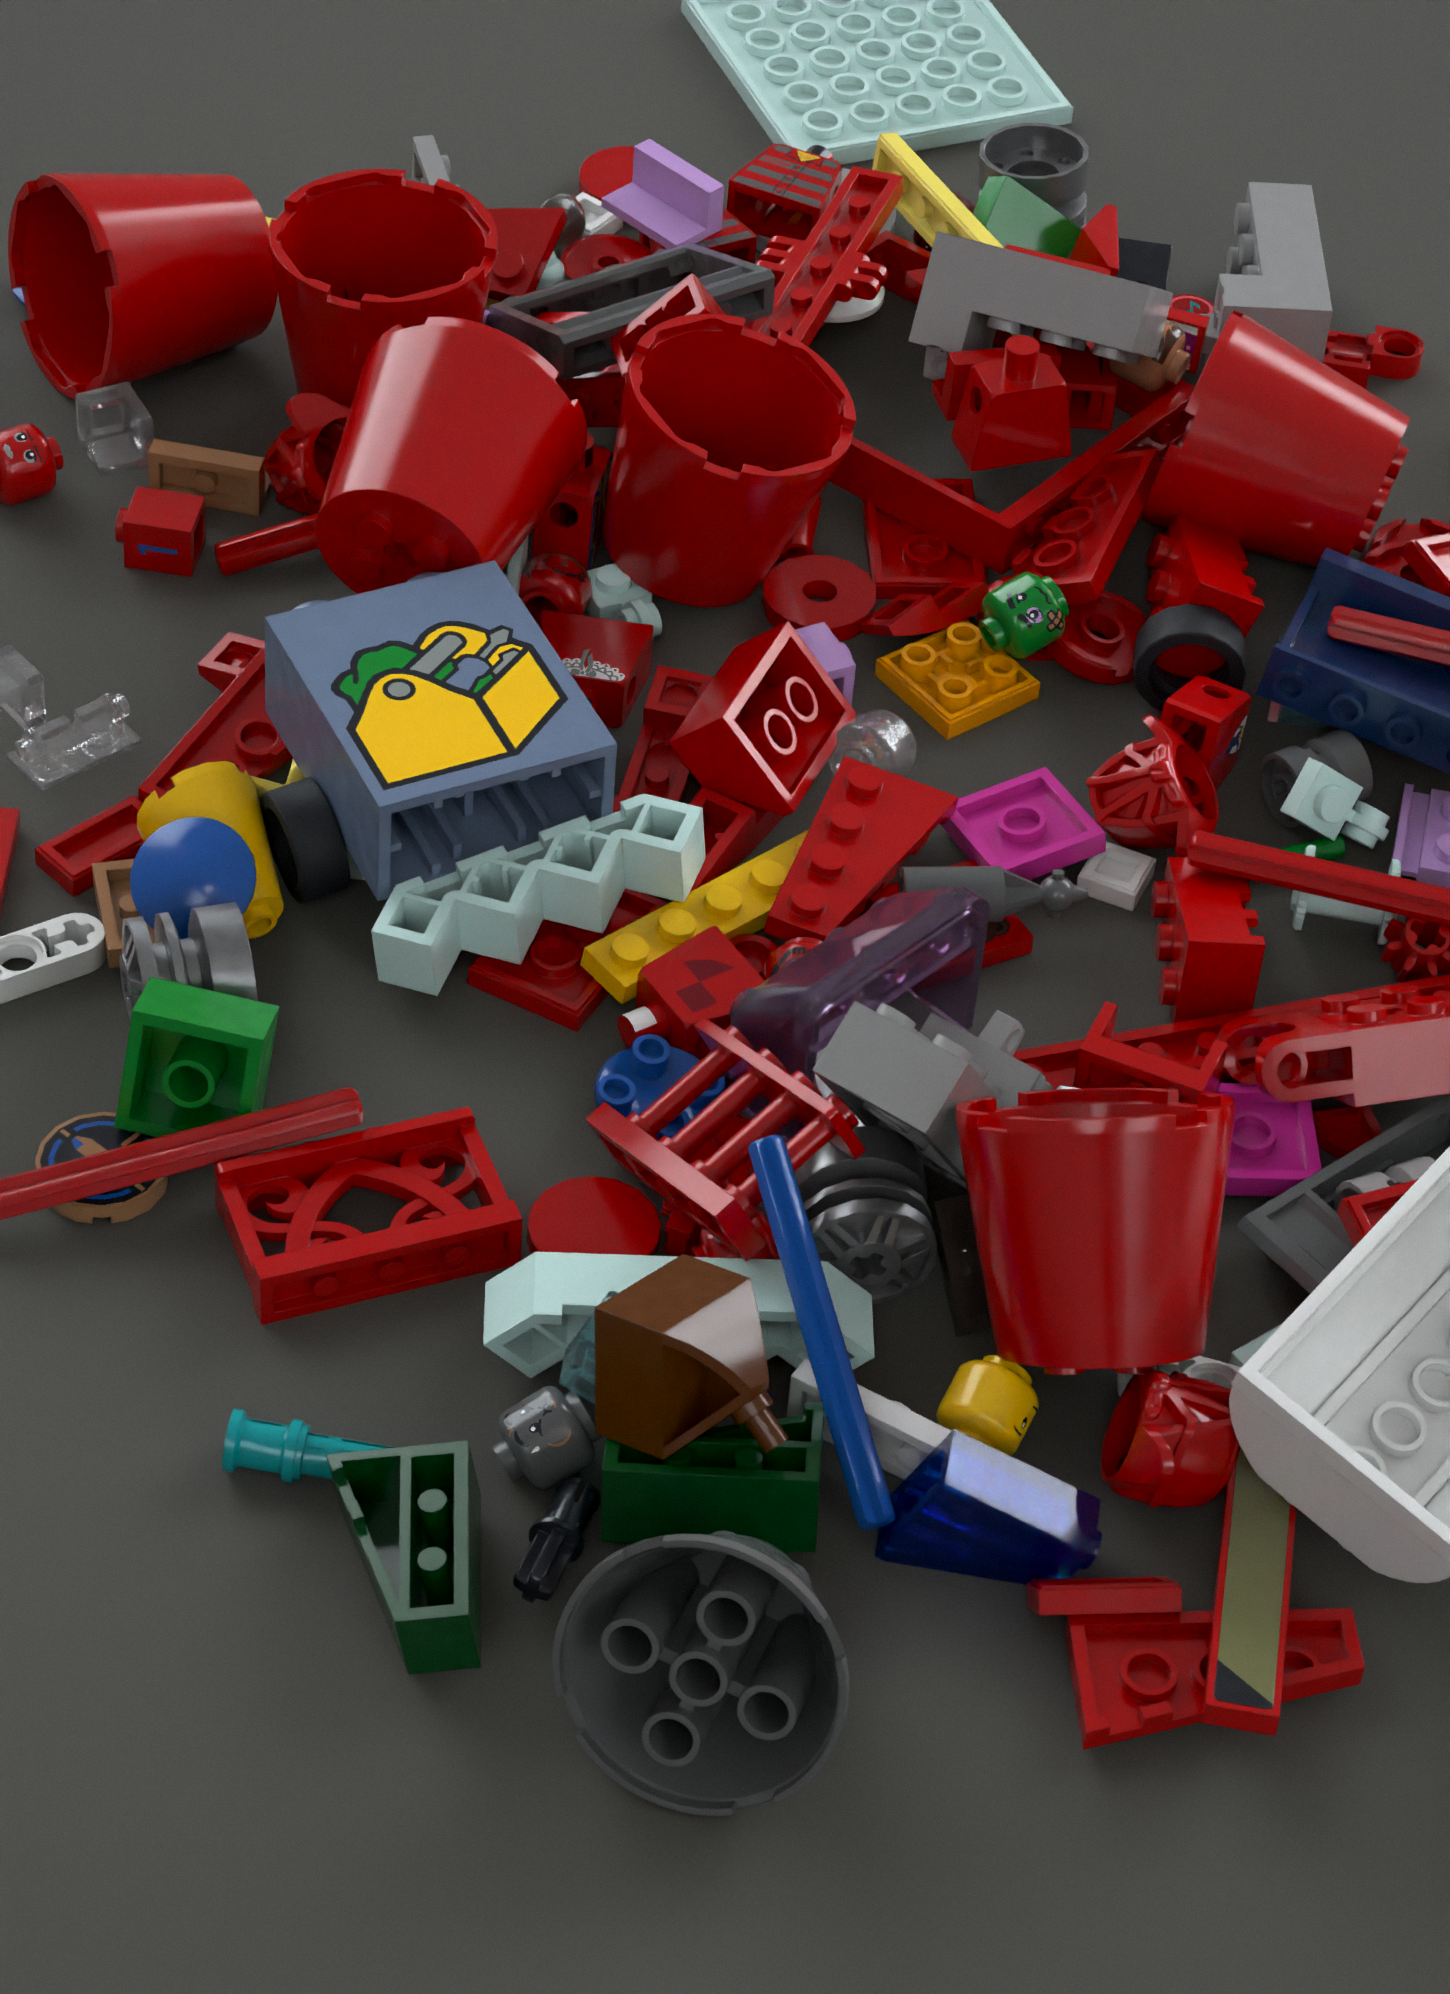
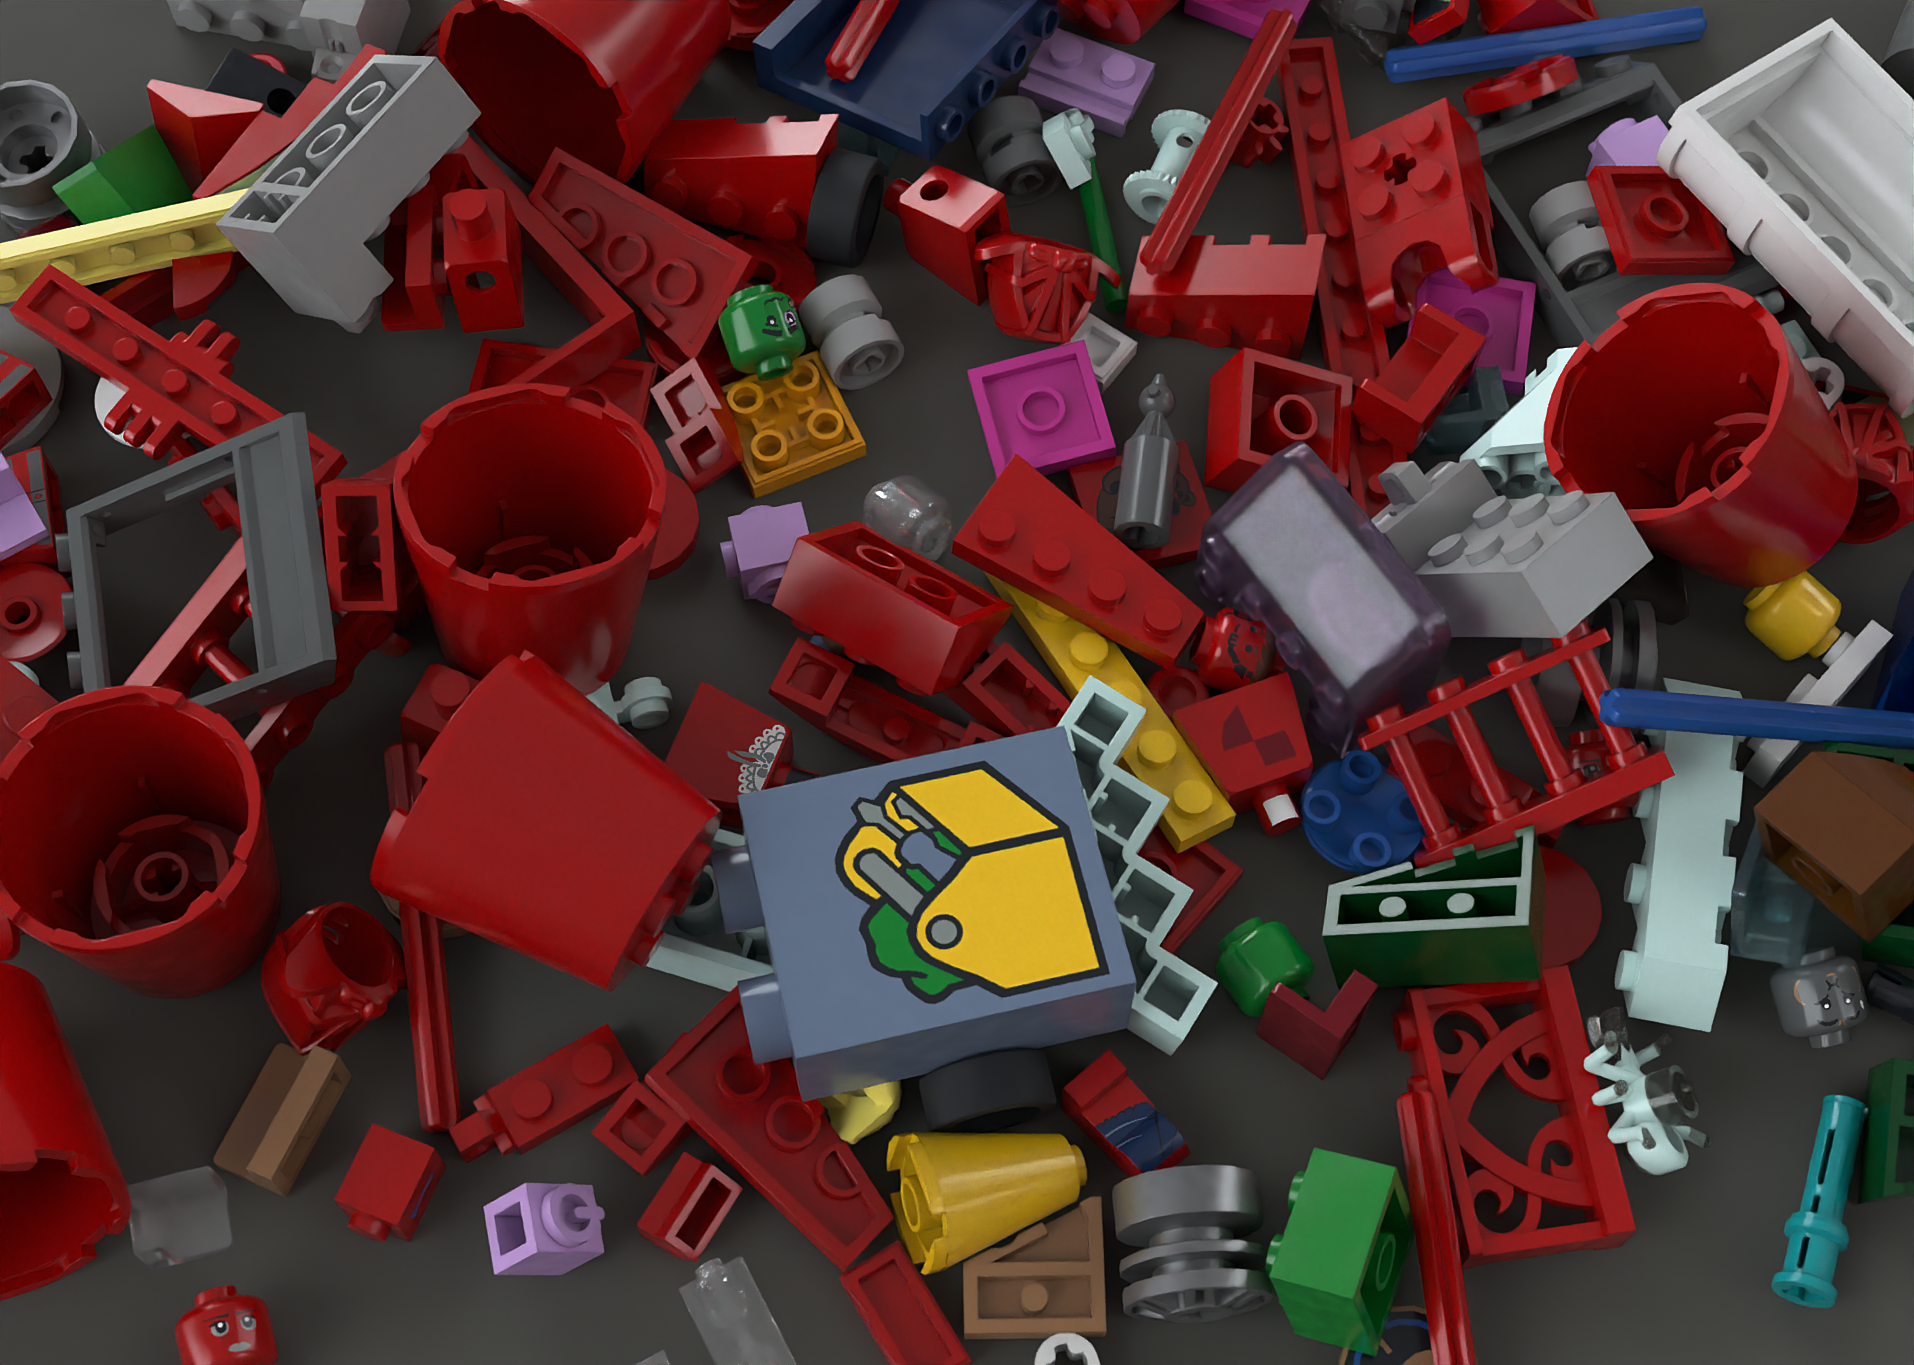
camera: 75 degrees left, 20 degrees up
(137, 610) = (544, 1229): none -> lavender brick
(171, 706) = (688, 1208): none -> red piece
(190, 867) = (1054, 1219): blue dish -> none
(238, 599) = (547, 1097): none -> red hinge
(310, 948) = (1122, 1119): none -> leg
(402, 1291) = (1649, 1101): none -> animal
(420, 1049) = (1309, 1034): none -> dark red panel
(477, 1027) = (1259, 957): none -> green head
(546, 1126) = (1443, 922): none -> dark green wedge
(1060, 690) = (849, 331): none -> light grey wheel
(1060, 975) = (1267, 404): none -> red slope

